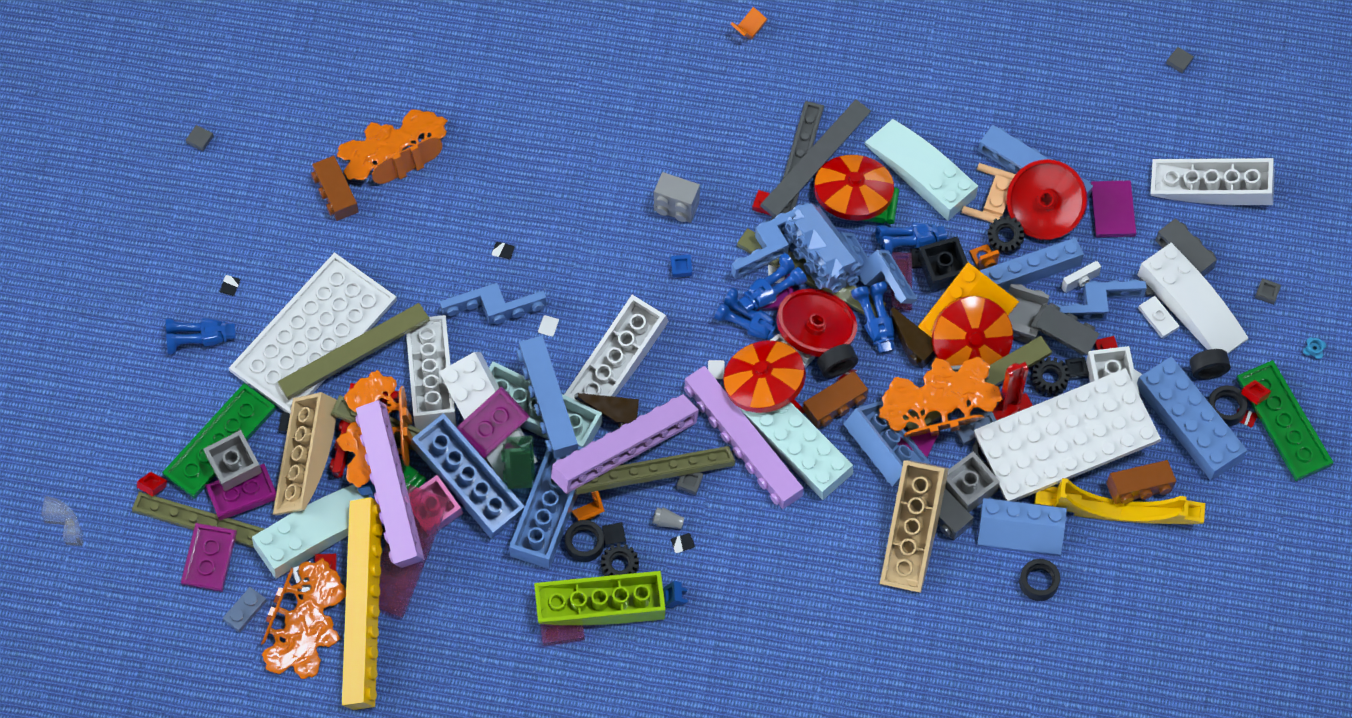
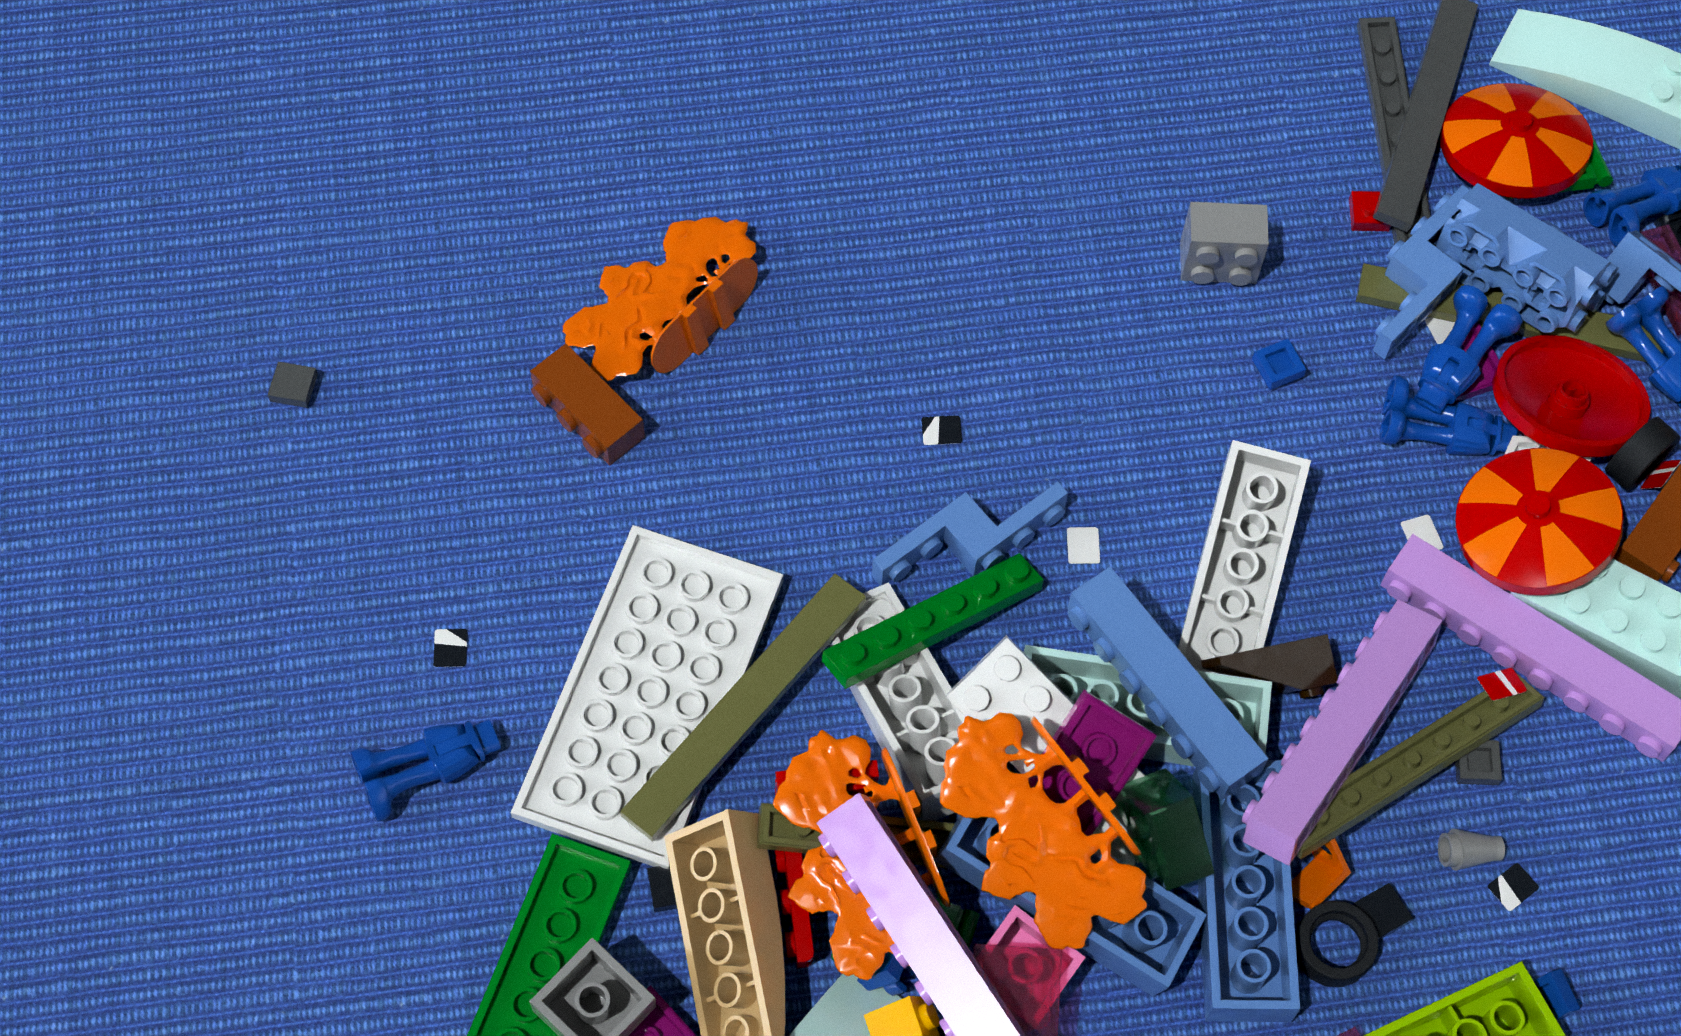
camera: 20 degrees left, 0 degrees up
(455, 447) = (1037, 839): none -> orange plant
(457, 338) = (931, 620): none -> green plate
(615, 552) = (1429, 944): black tyre -> none
(717, 448) = (1502, 684): none -> red sticker

